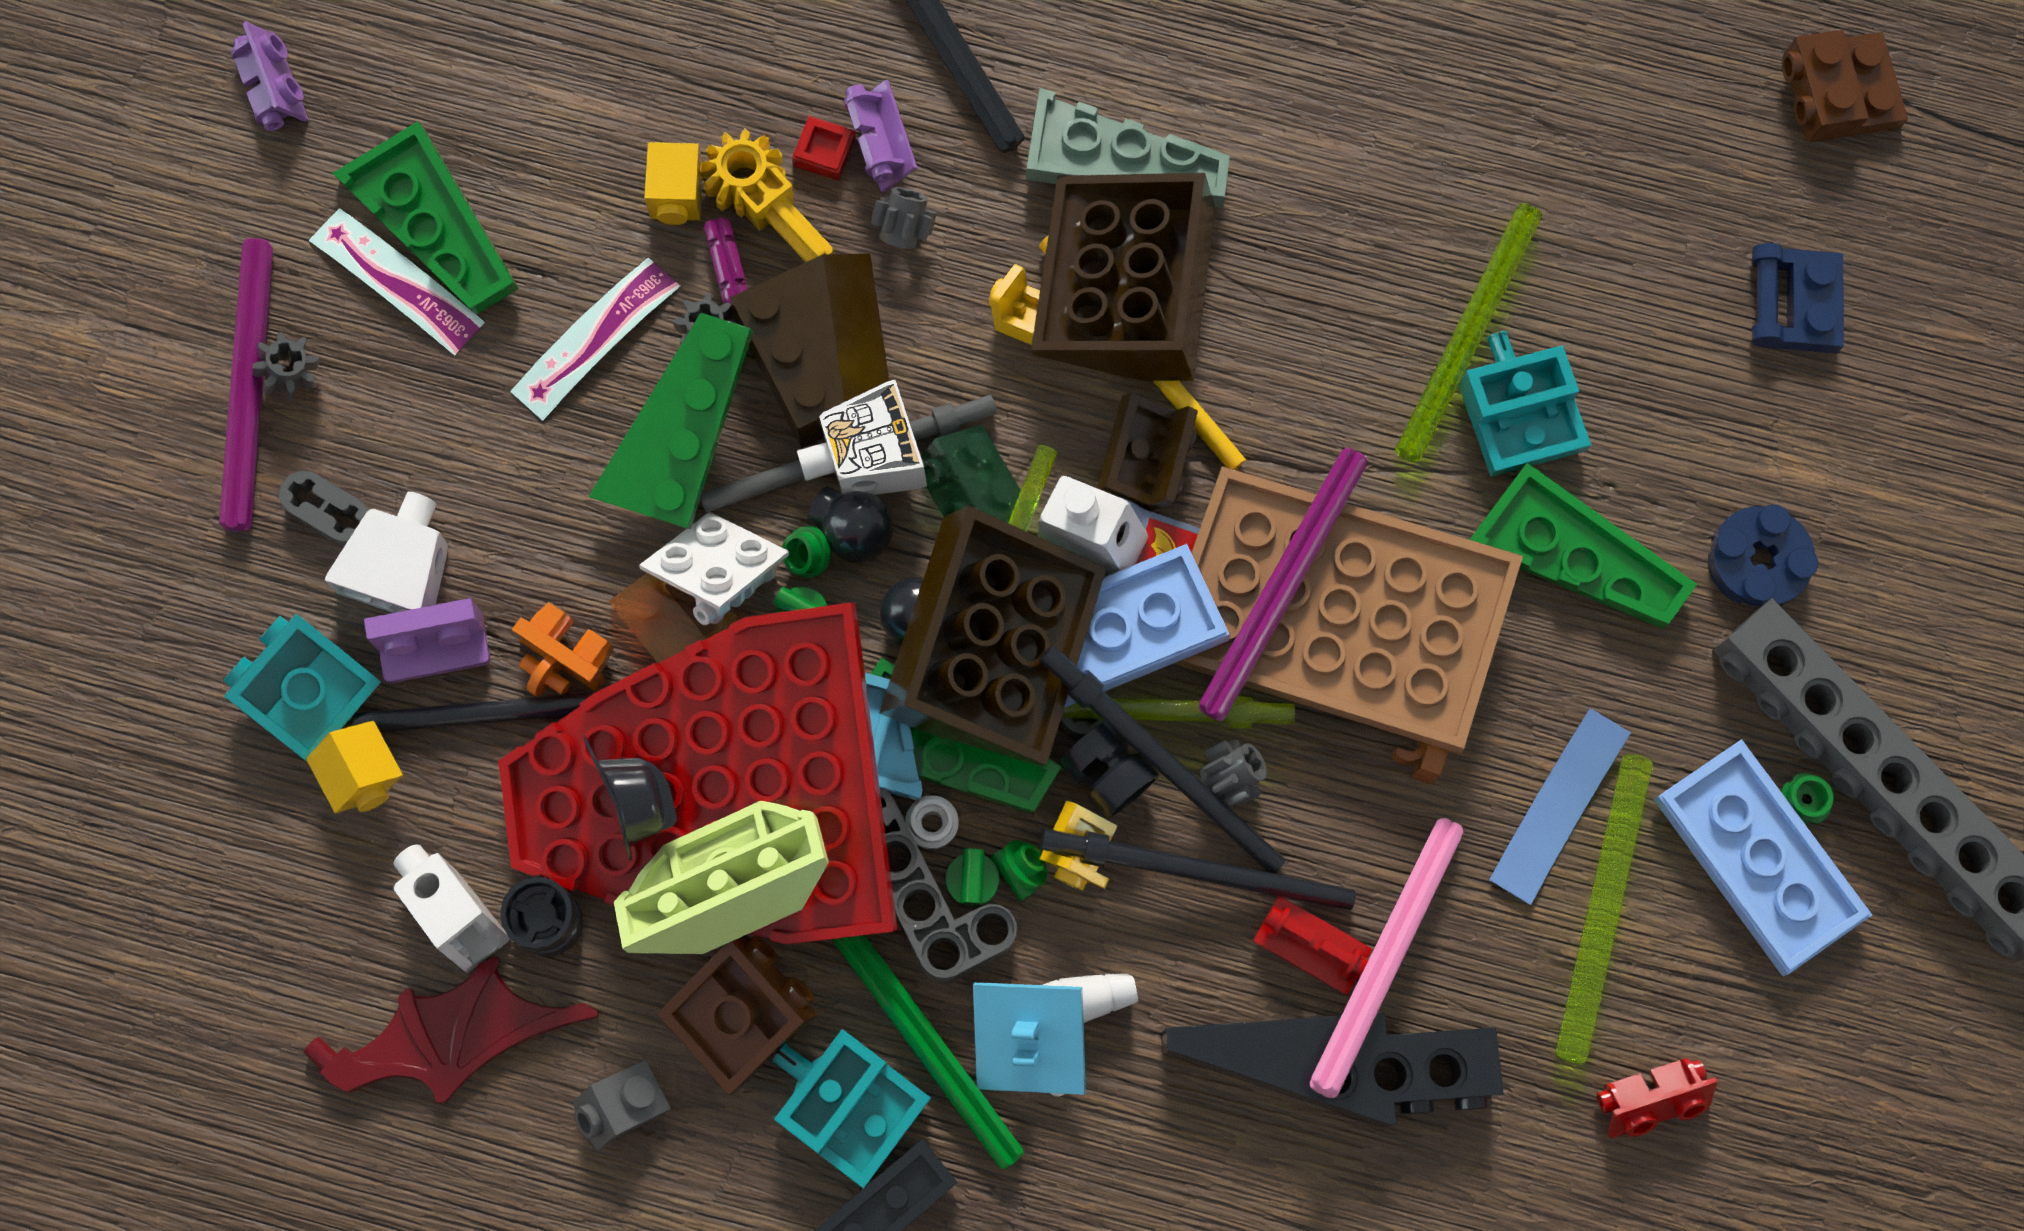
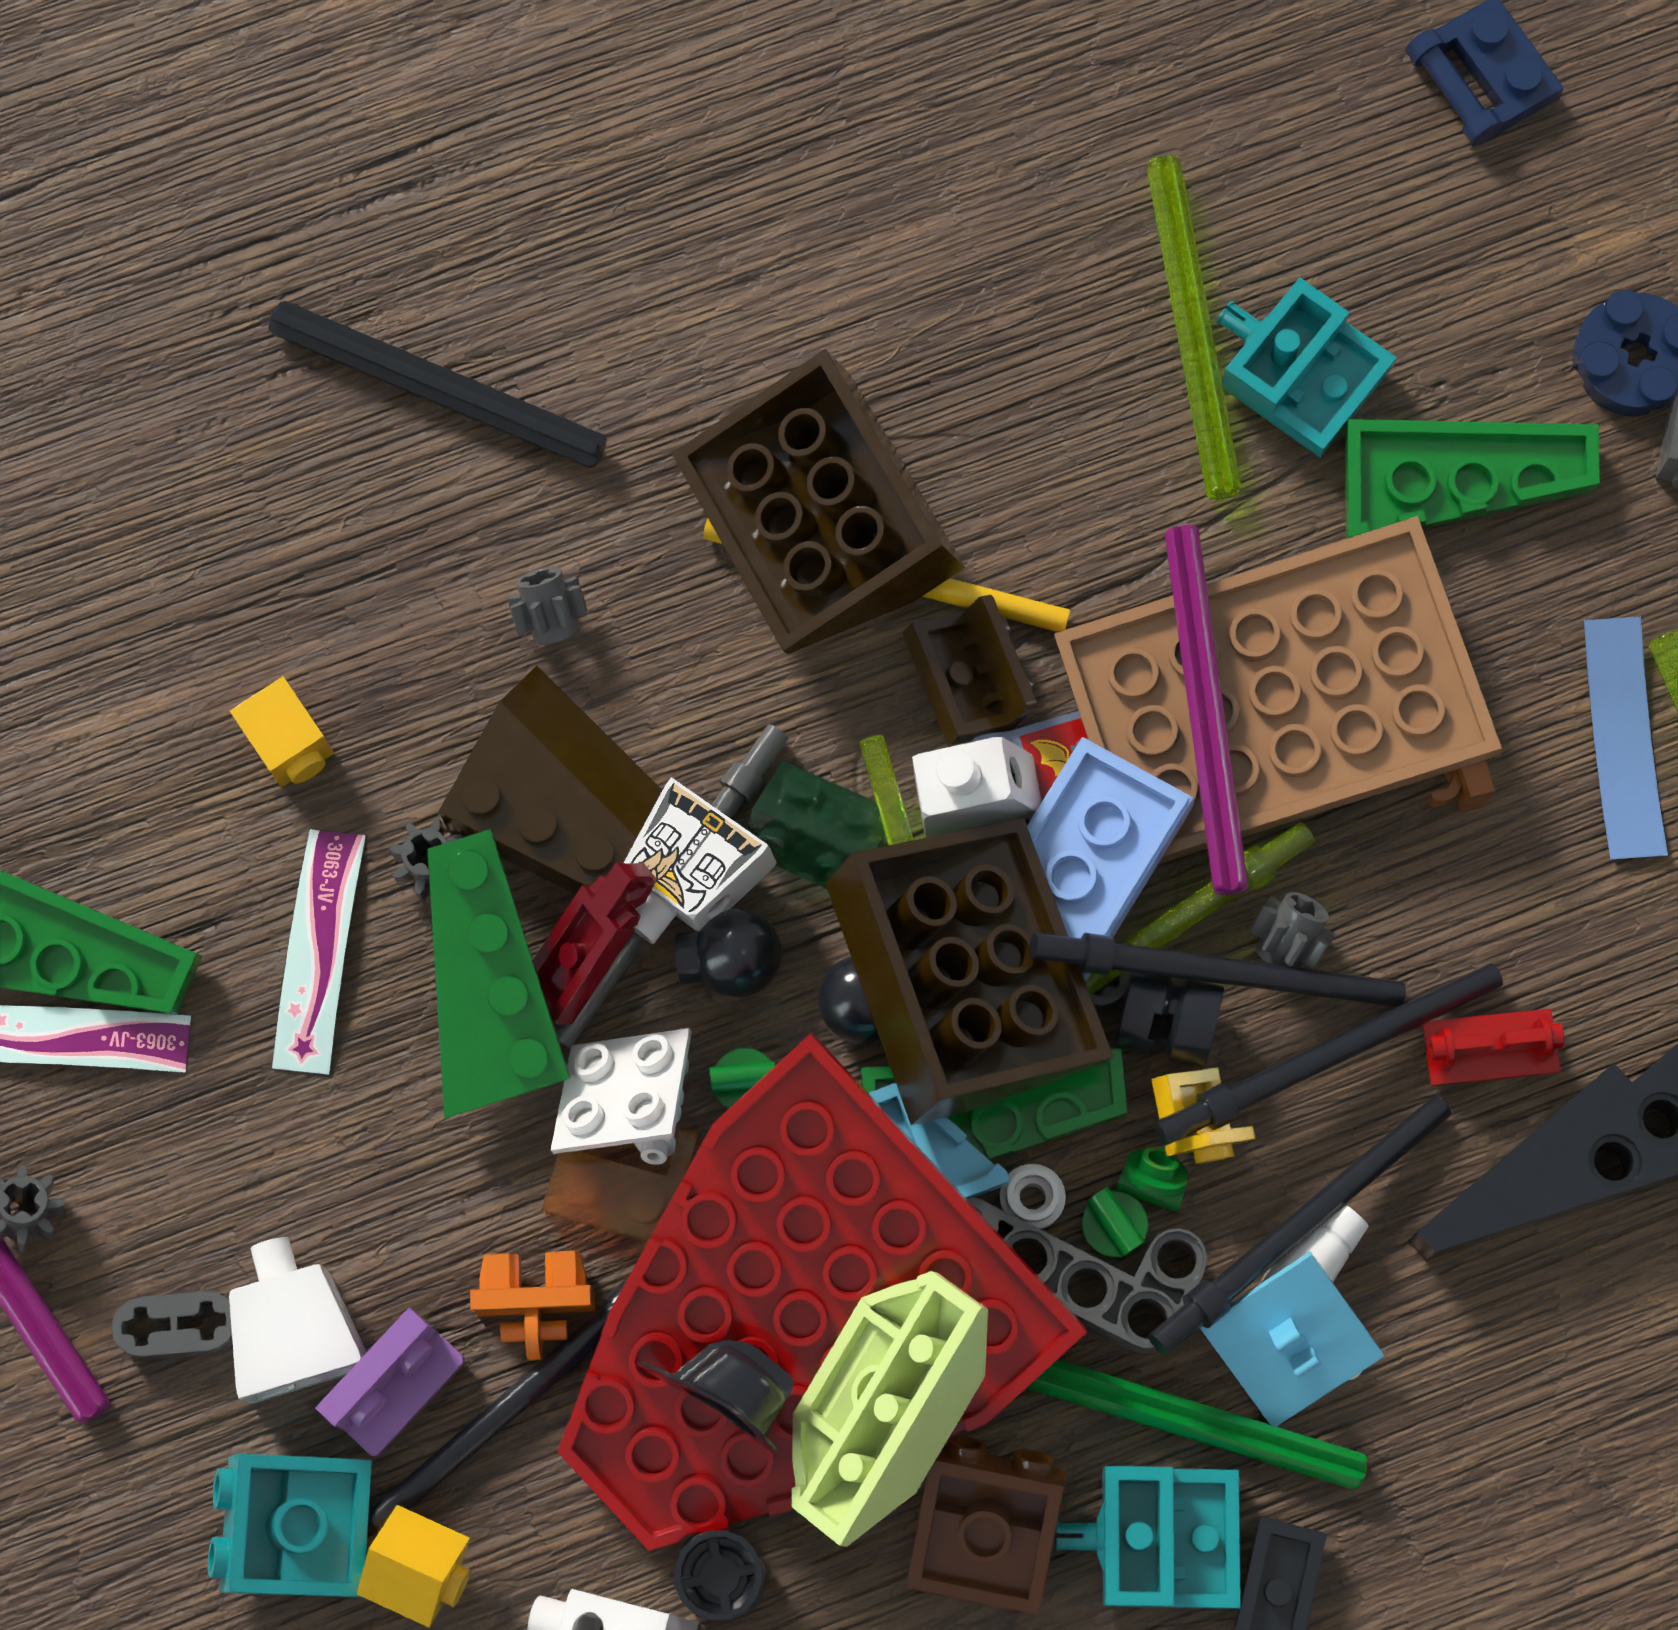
camera: 25 degrees left, 0 degrees up
(725, 258) = (396, 777): magenta axle -> none
(763, 196) = (386, 682): yellow gear -> none
(766, 446) = (590, 938): none -> dark red hinge
(807, 552) = (705, 1028): green plate -> none
(824, 148) = (407, 589): red tile -> none
(883, 134) = (459, 533): medium lavender hinge -> none
(991, 971) = (1210, 1300): none -> black bar
(1014, 305) = (730, 616): yellow bracket -> none
(1081, 142) = (676, 399): sand green wing -> none
(1386, 959) = (1576, 1008): bright pink axle -> none

